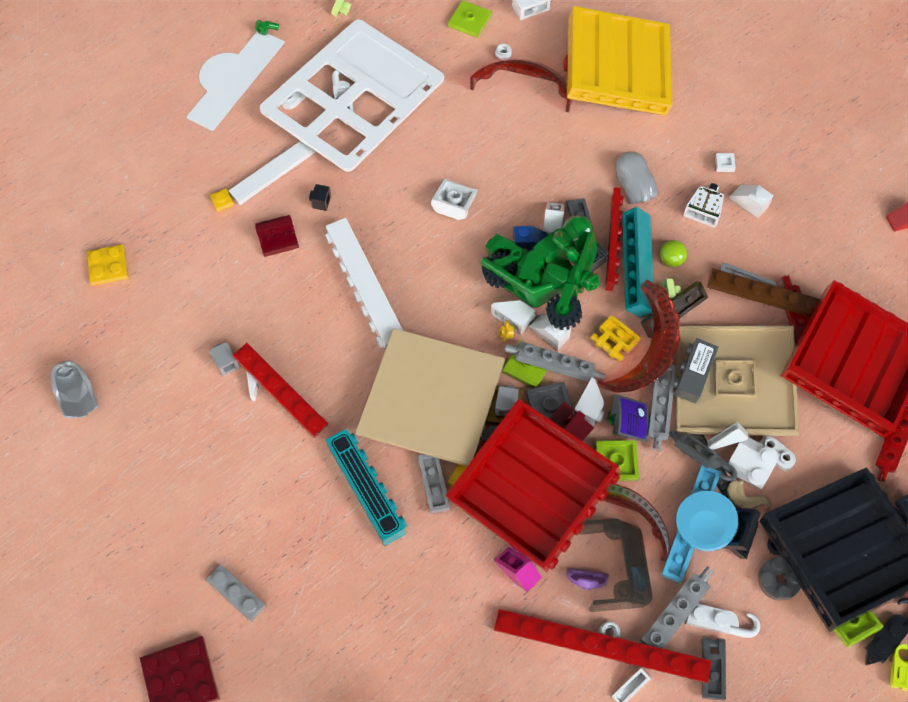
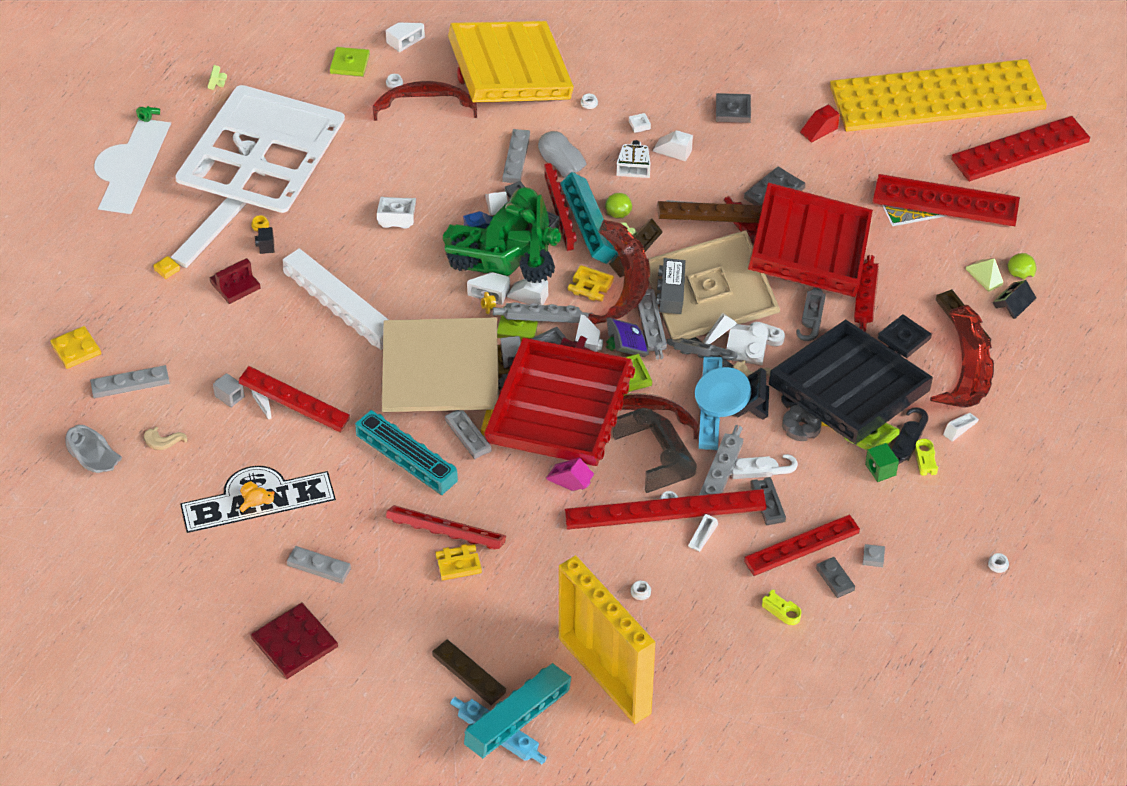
camera: 20 degrees left, 15 degrees down
(140, 397) = (157, 442): none -> tan piece
(141, 318) = (129, 381): none -> light grey plate
(203, 492) = (255, 496): none -> light orange animal
(208, 486) = (288, 495): none -> sticker
(323, 172) = (259, 222): none -> yellow plate
(368, 643) = (458, 566): none -> yellow plate
(373, 592) = (451, 528): none -> red plate
(587, 579) = (634, 467): medium lavender plate -> none
(591, 167) = (516, 156): none -> light grey plate
(683, 124) = (589, 101): none -> white plate
(825, 170) = (733, 107): none -> flat silver plate
(833, 444) = (812, 313): none -> dark grey plate
(843, 270) = (777, 176): none -> flat silver plate
(851, 662) = (881, 462): none -> green piece

